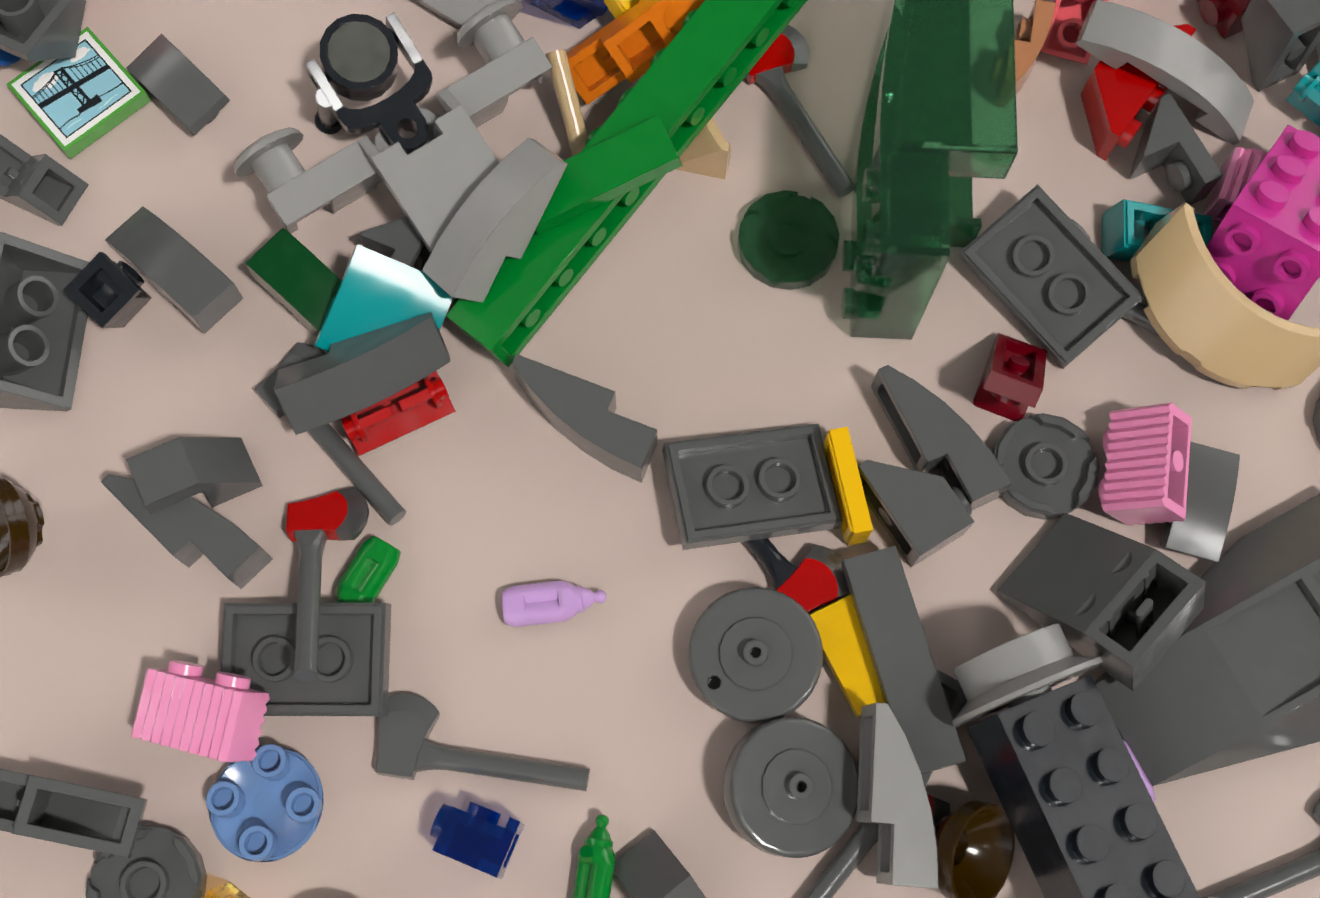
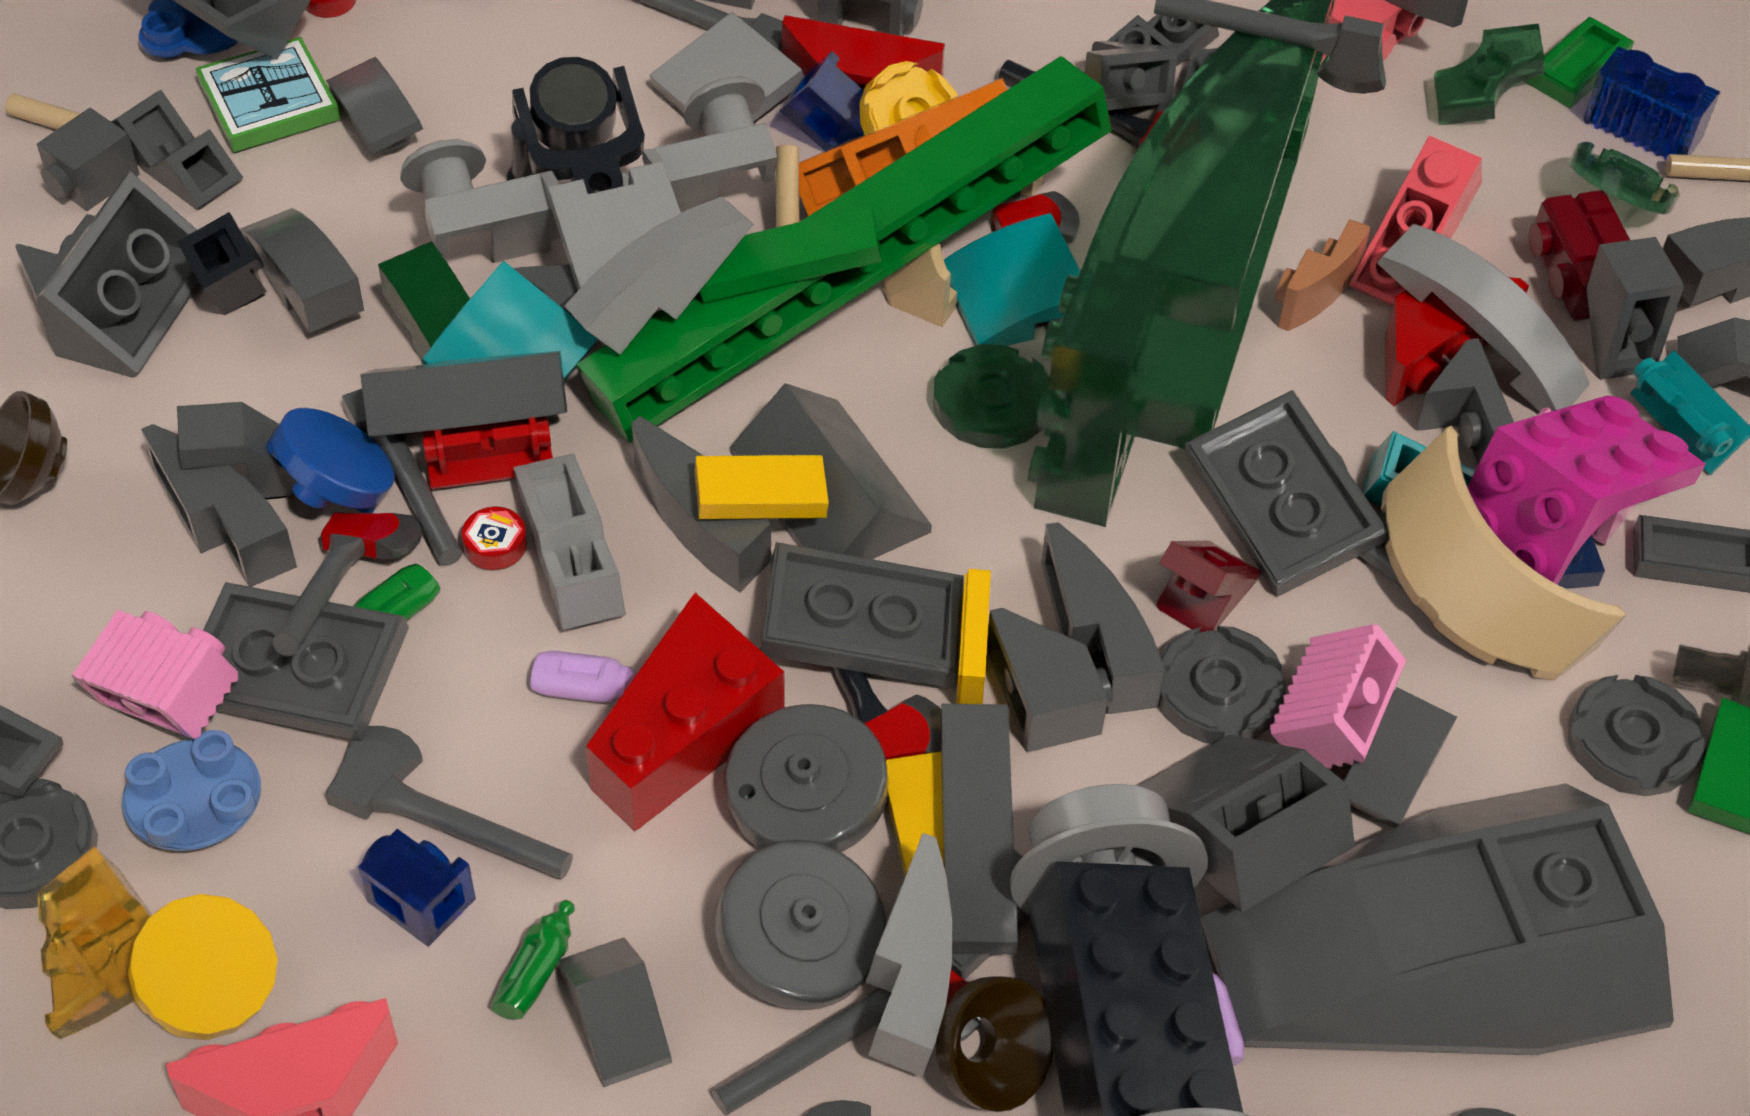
camera: 15 degrees right, 20 degrees down
(271, 464) = (331, 460): none -> blue tile
(428, 490) = (494, 538): none -> tile
(491, 478) = (570, 541): none -> light grey slope
(640, 401) = (761, 487): none -> yellow tile
(640, 621) = (681, 714): none -> red wedge
(681, 361) = (867, 503): none -> dark grey slope
(778, 125) = (1011, 280): none -> teal slope

